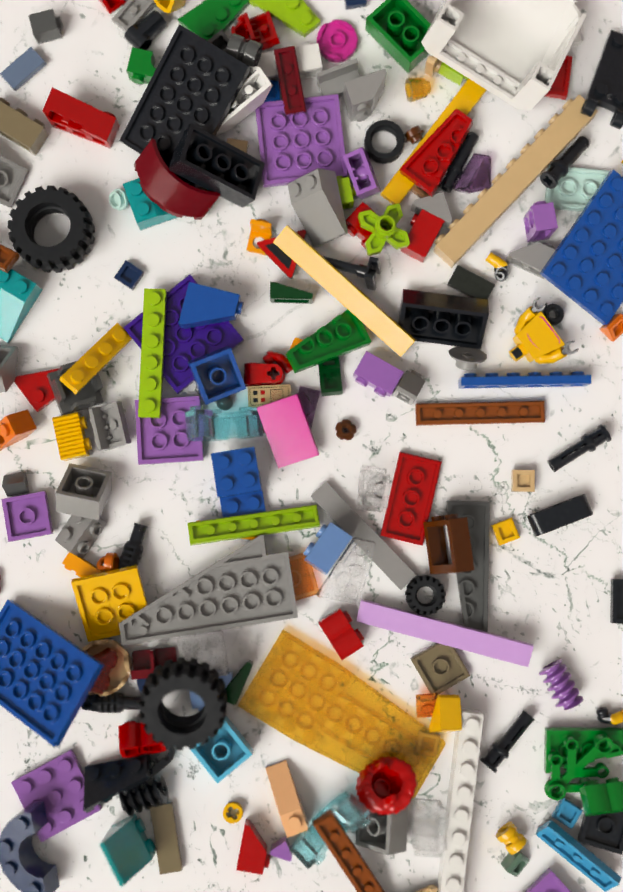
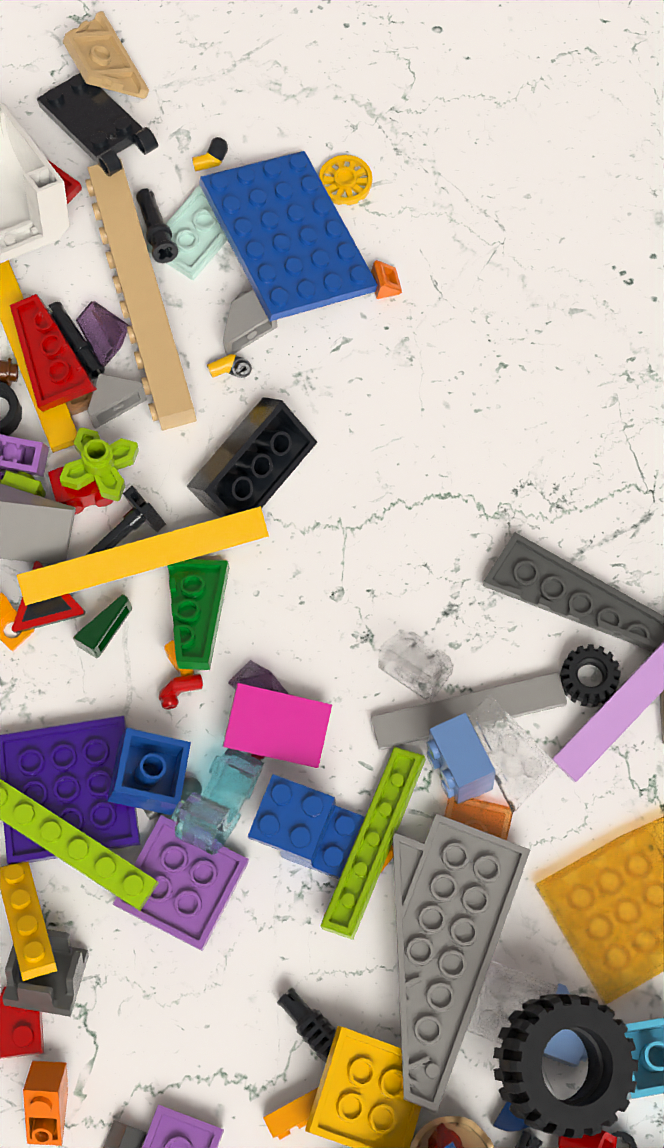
camera: 55 degrees left, 15 degrees down
(71, 436) = (107, 1020): yellow brick -> none
(80, 534) = (244, 1086): light grey bracket -> none
(83, 491) = (194, 1043): light grey brick -> none
(109, 426) = (126, 959): light grey bracket -> none
(110, 562) = (313, 1067): orange tile -> none
(146, 660) = (479, 1094): dark red panel -> none
(208, 306) = (53, 731): blue slope -> none
(237, 684) = (572, 976): dark green slope -> none
(259, 374) = (182, 720): red piece -> none
(267, 393) = (211, 731): tan tile -> none
(330, 378) = (241, 637): dark green slope -> none
(340, 429) = (323, 663): reddish brown plate -> none
(341, 634) = (582, 809): red brick -> none
(377, 374) = (274, 576): medium lavender brick -> none
(409, 387) = (314, 547): light grey slope -> none
(410, 498) = (455, 625): red tile -> none
(422, 234) = (132, 422): red brick -> none
(459, 544) = (550, 588): reddish brown window -> none
(467, 358) = (319, 460): light grey piece -> none
(470, 283) = (229, 409): pearl dark grey tile -> none
(480, 413) = (395, 487): dark orange tile -> none
(505, 531) = (562, 537): yellow tile -> none
(522, 480) = (511, 480): tan plate -> none
(534, 379) = (381, 422): blue plate -> none
(537, 338) = (346, 368): yellow torso -> none
(540, 221) = (208, 287): medium lavender brick -> none
(557, 310) = (327, 330): black plate -> none
(560, 515) = (578, 461): black beam -> none
(586, 441) = (510, 382): black pin -> none

